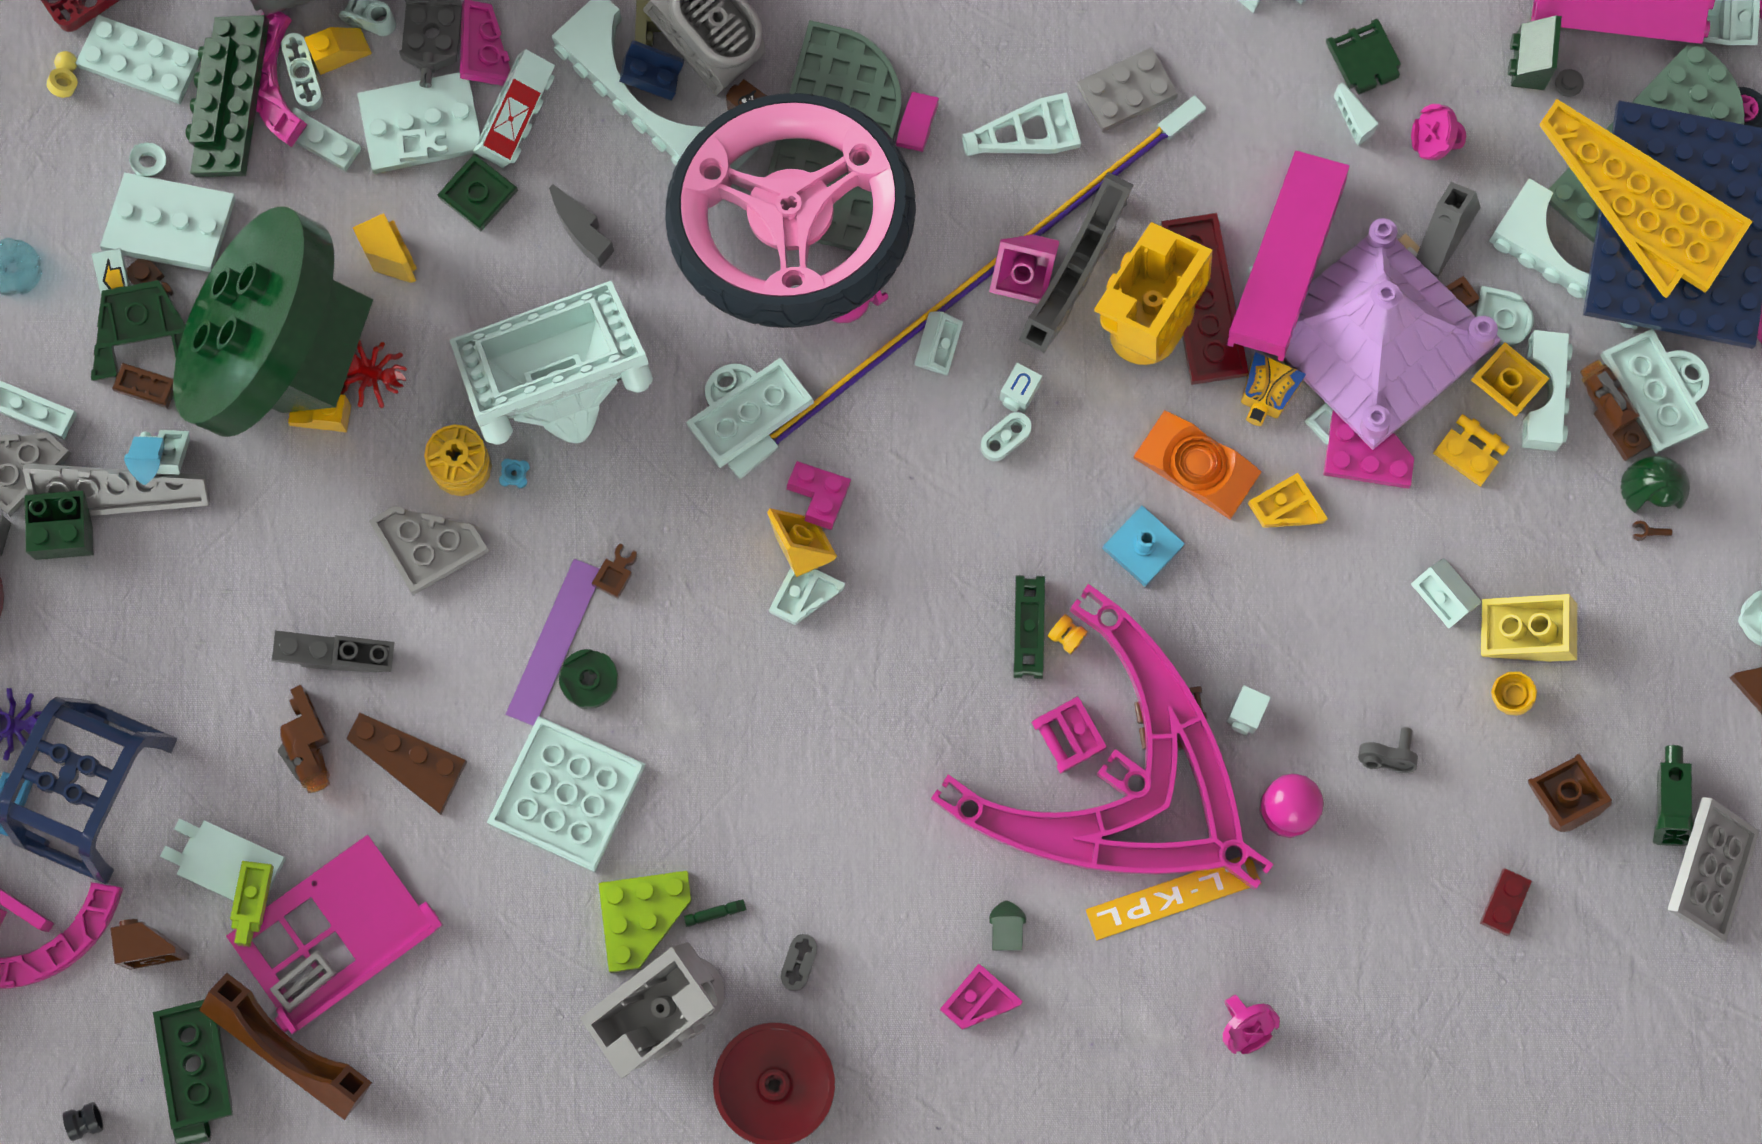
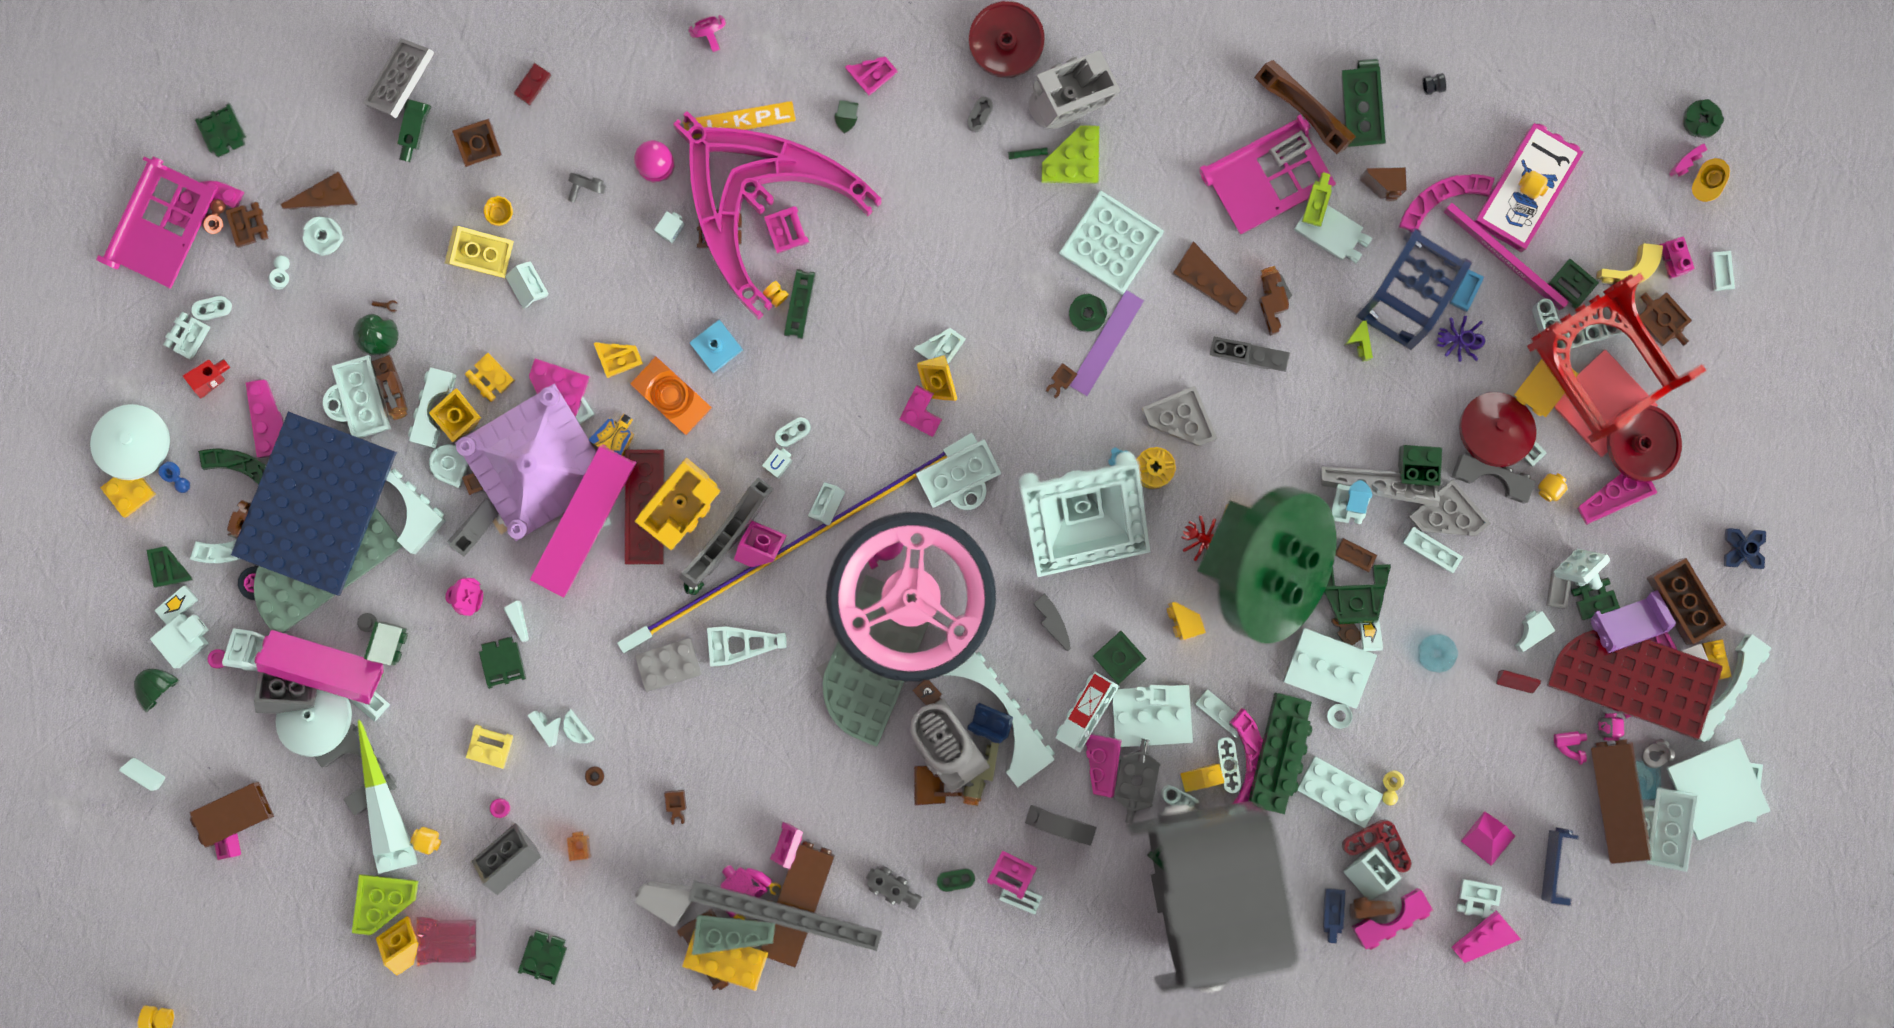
camera: 165 degrees left, 10 degrees up
(165, 705) = (1361, 336): none -> lime slope
(917, 121) = (815, 661): dark pink slope -> none
(1657, 213) = (331, 506): yellow wing -> none

